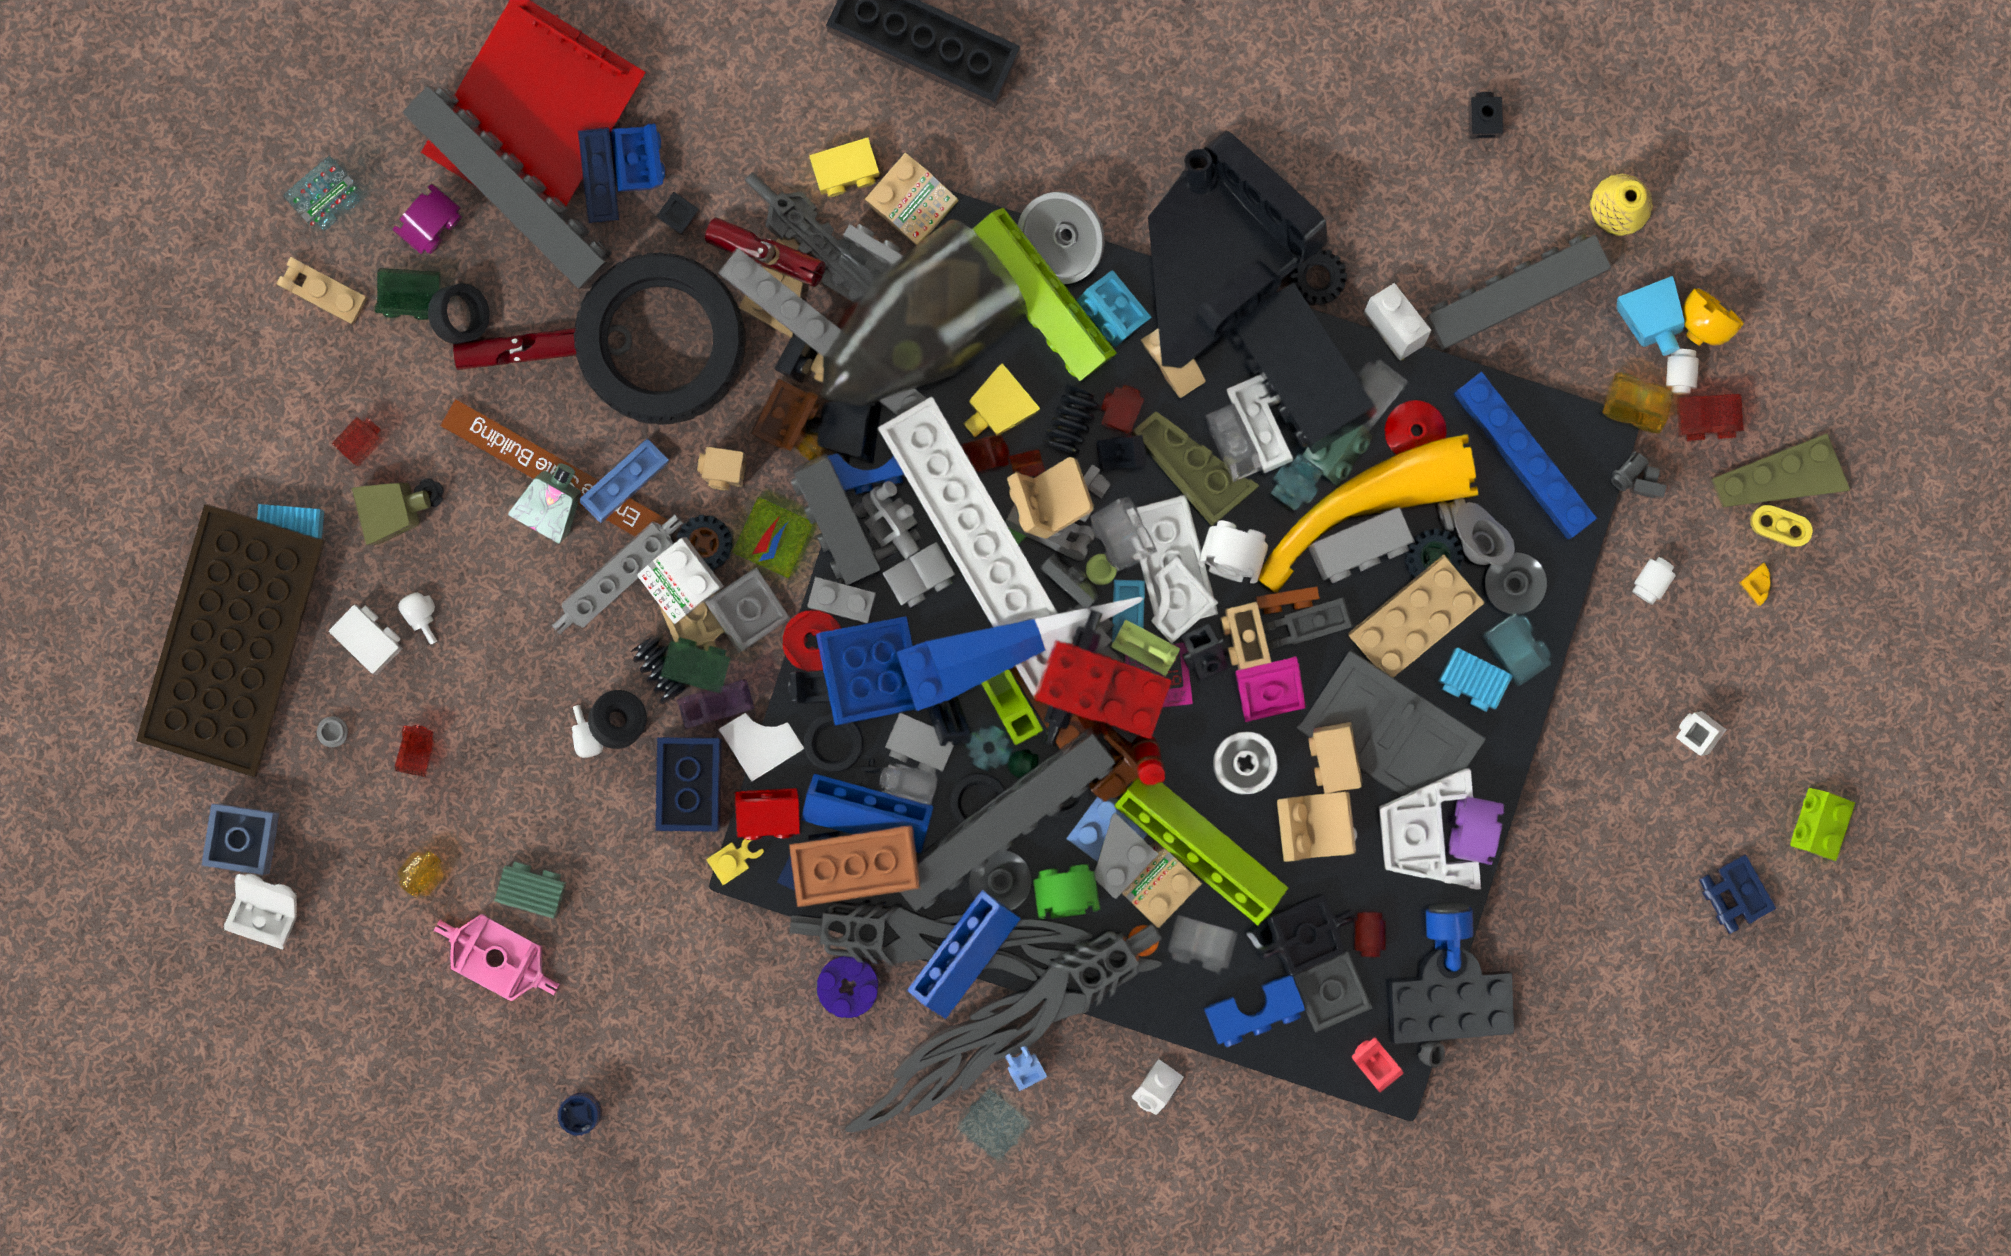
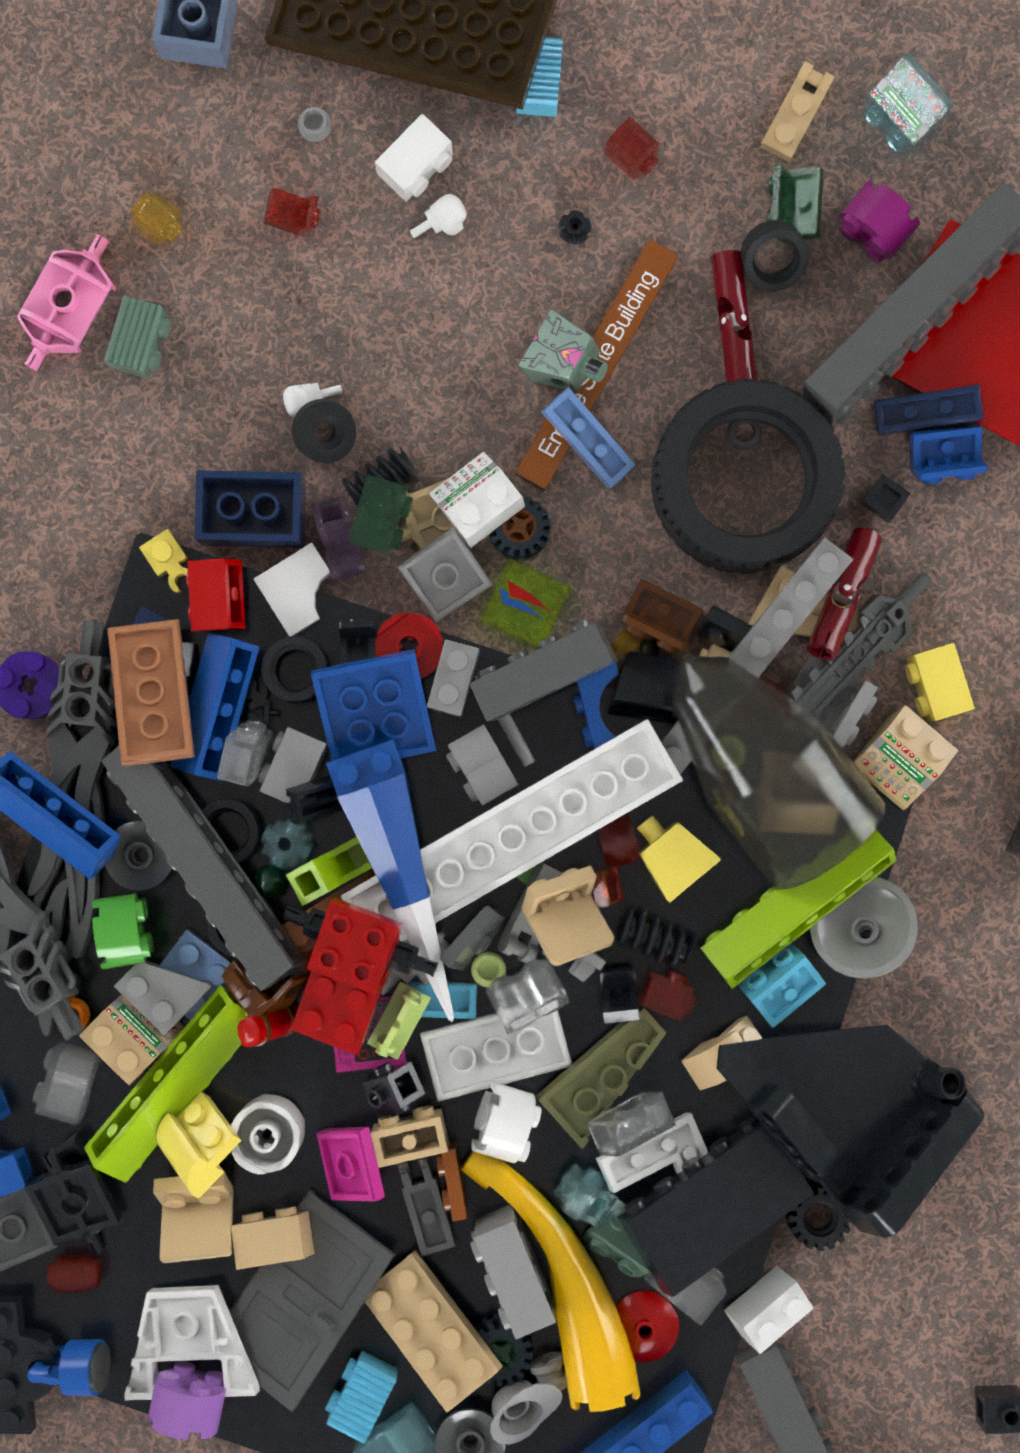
camera: 90 degrees right, 0 degrees up
(262, 911) = (113, 46): white bracket -> none
(388, 510) = (555, 180): olive torso -> none
(616, 574) = (484, 431): light grey plate -> none
(722, 468) = (602, 545): tan brick -> none
(888, 519) = (544, 731): light grey piece -> none
(1182, 600) = (452, 1061): white tile -> none
(1251, 822) = (197, 1143): none -> light yellow brick

